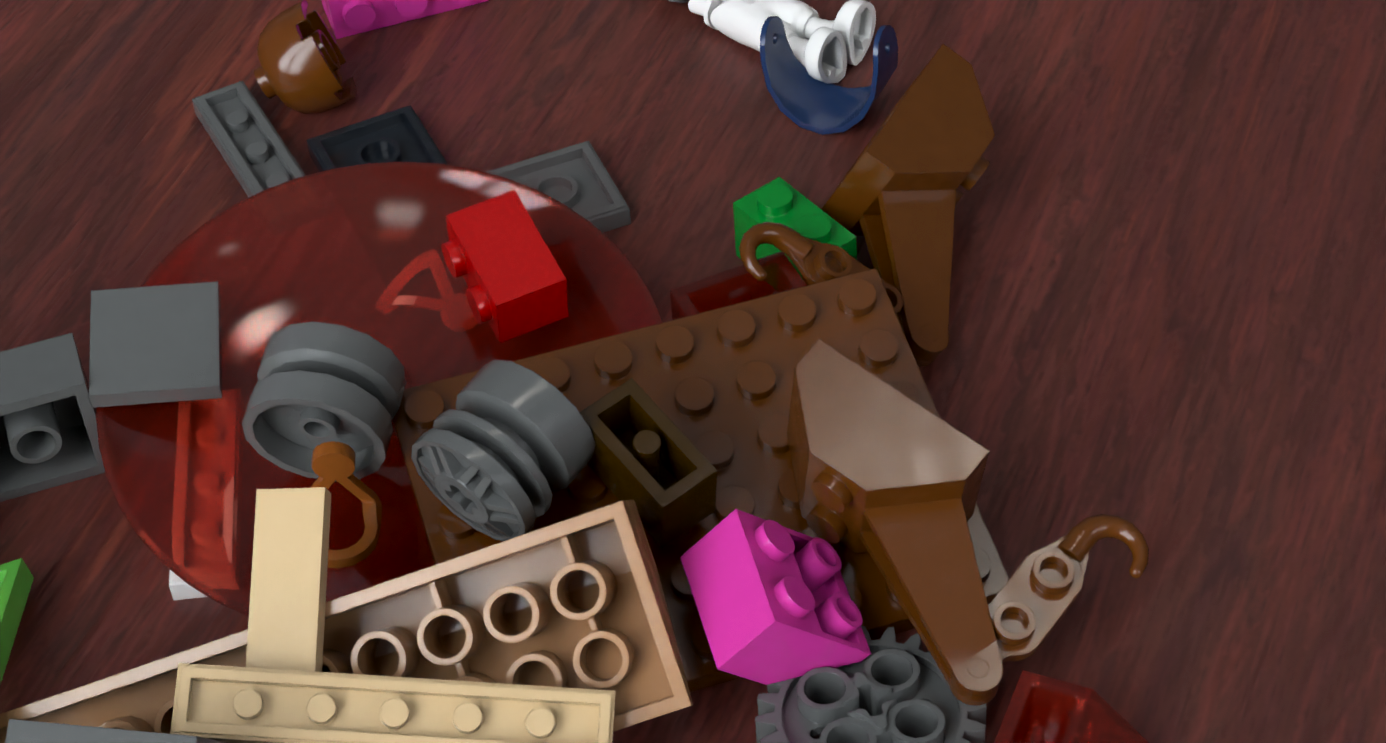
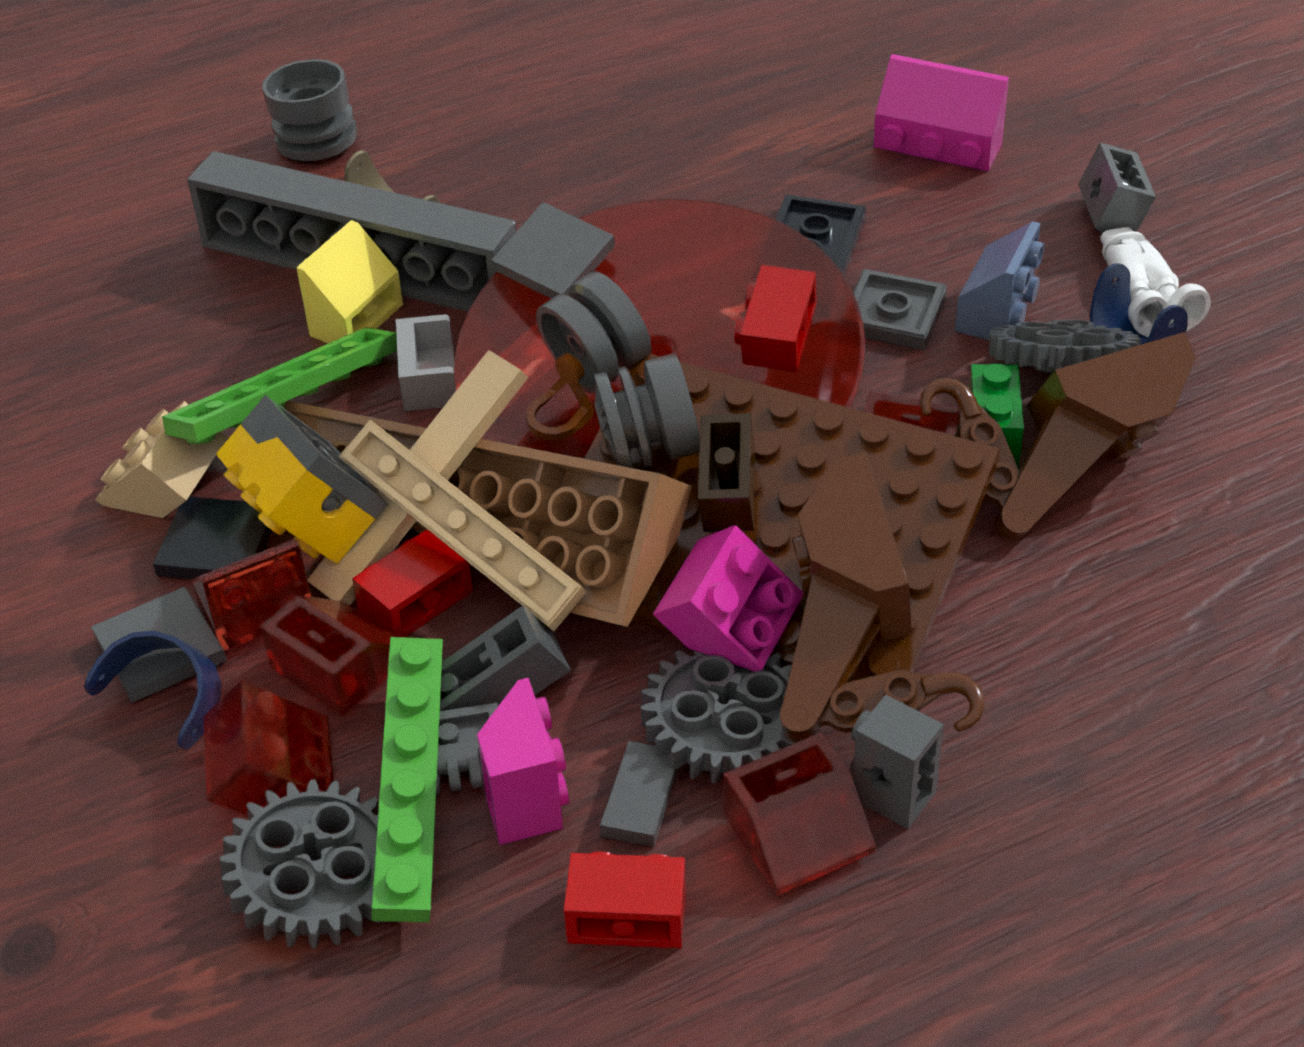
camera: 40 degrees right, 0 degrees up
(90, 575) = (425, 361): none -> light grey panel
(246, 138) = (758, 174): dark grey tile -> none
(302, 62) = (827, 146): reddish brown cylinder -> none
(657, 105) = (1001, 283): none -> sand blue slope
(794, 133) = (1056, 343): none -> dark grey gear
(1110, 642) = (896, 760): none -> dark grey brick

